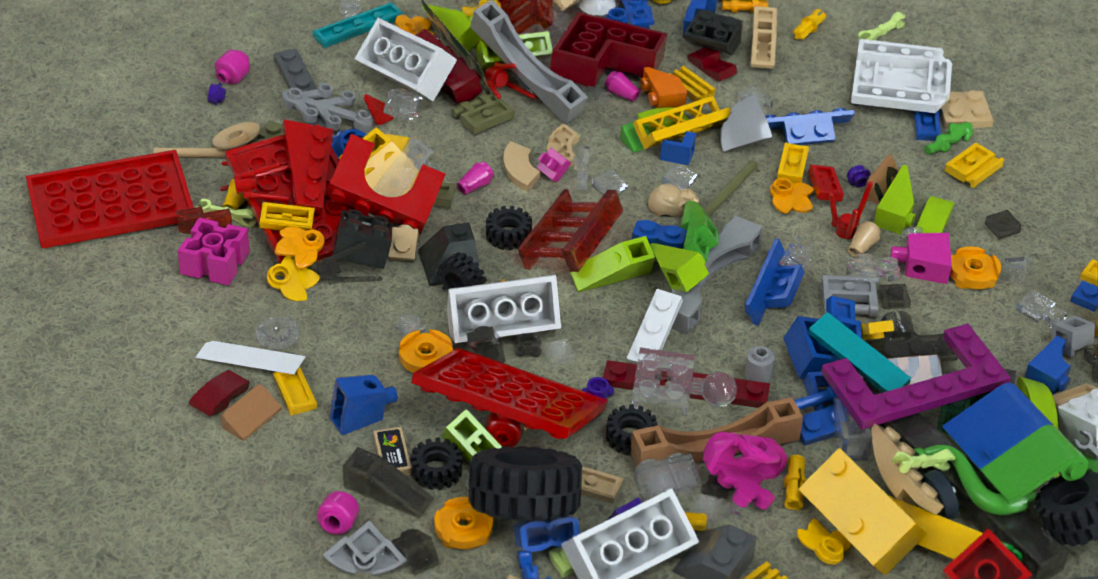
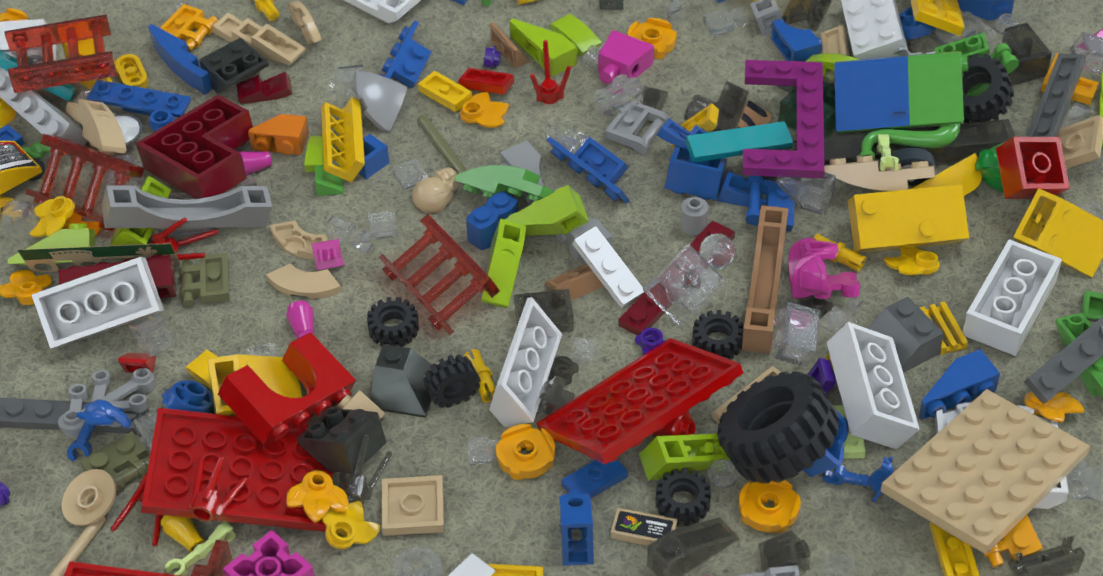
camera: 60 degrees left, 5 degrees up
(279, 222) = (258, 509): yellow tile -> none
(299, 100) = (95, 414): none -> blue piece
(308, 161) = (212, 437): red wing -> none
(332, 306) = (412, 505): none -> tan plate
(403, 168) = (273, 361): clear piece -> none
(426, 405) = (595, 477): none -> blue plate
(581, 310) = (555, 305): none -> clear smoke brick
(624, 319) = (578, 281): none -> medium nougat slope
(694, 82) = (268, 112): yellow tile -> none
(800, 52) = (305, 22): none -> tan tile
(864, 238) = (575, 88): tan cone -> none

